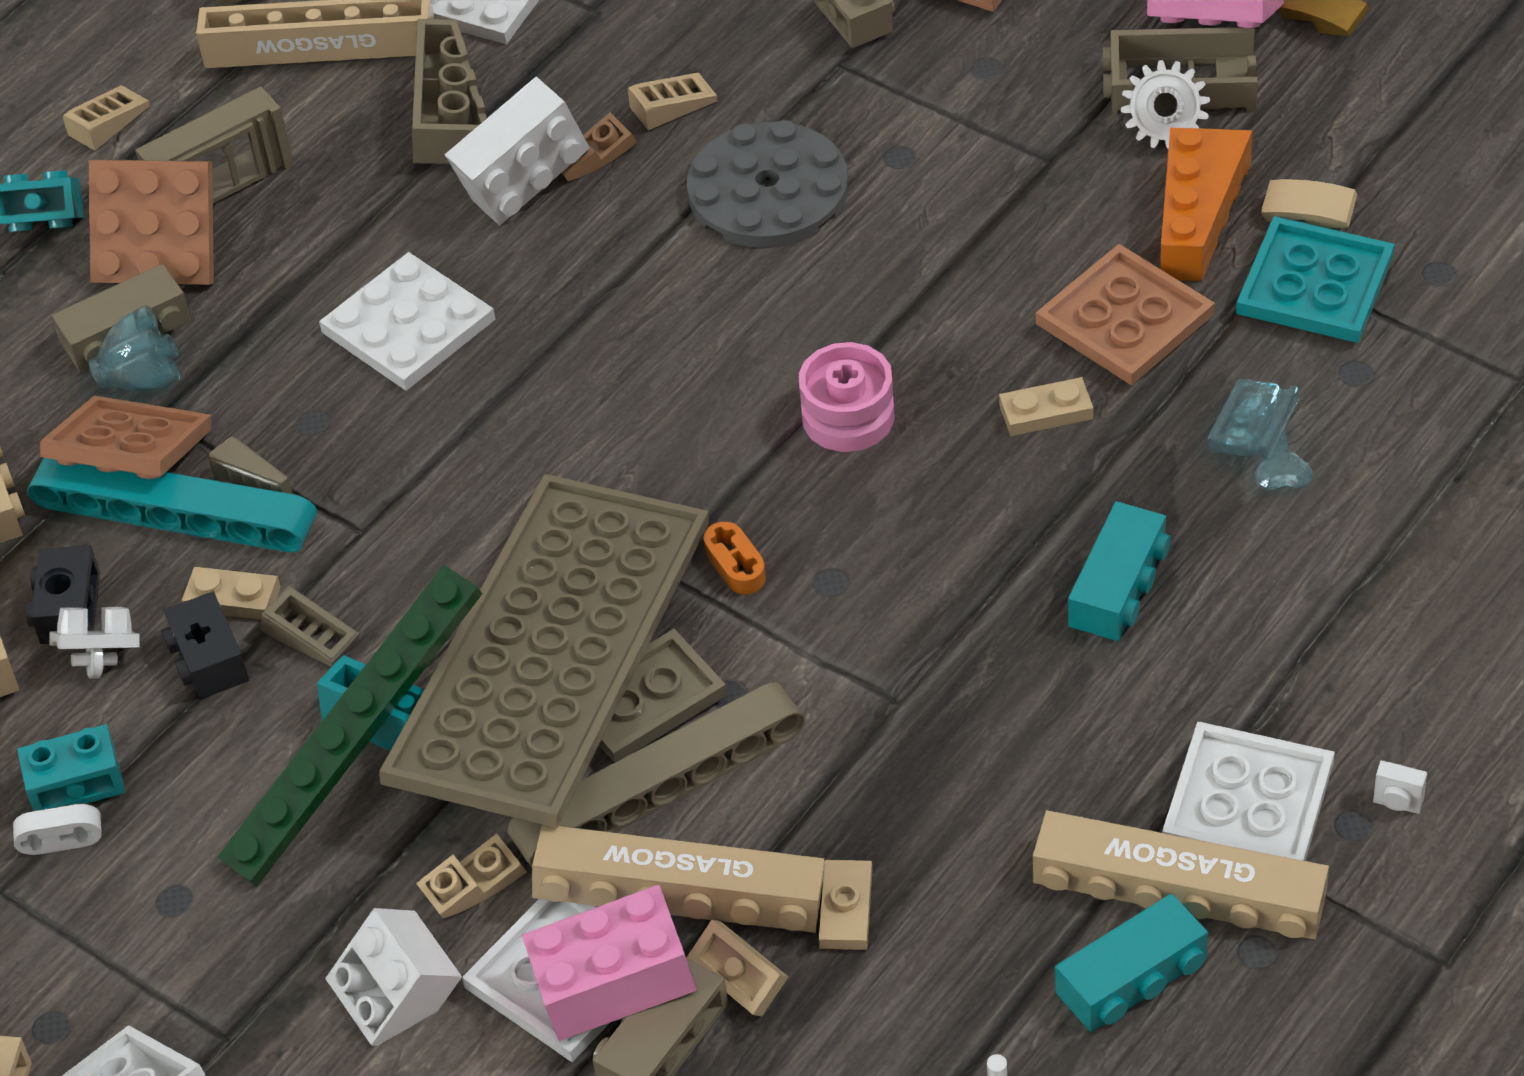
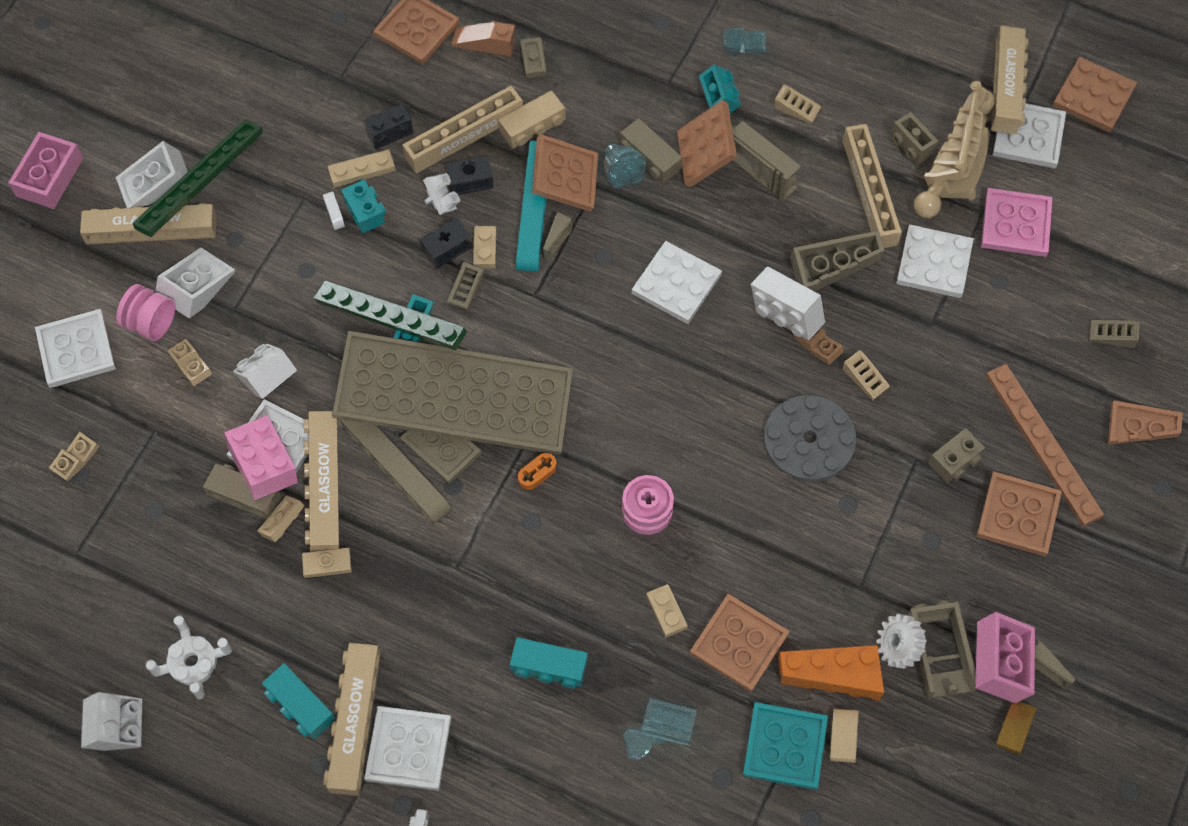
camera: 75 degrees right, 15 degrees up
(463, 884) = (321, 388): tan slope -> none

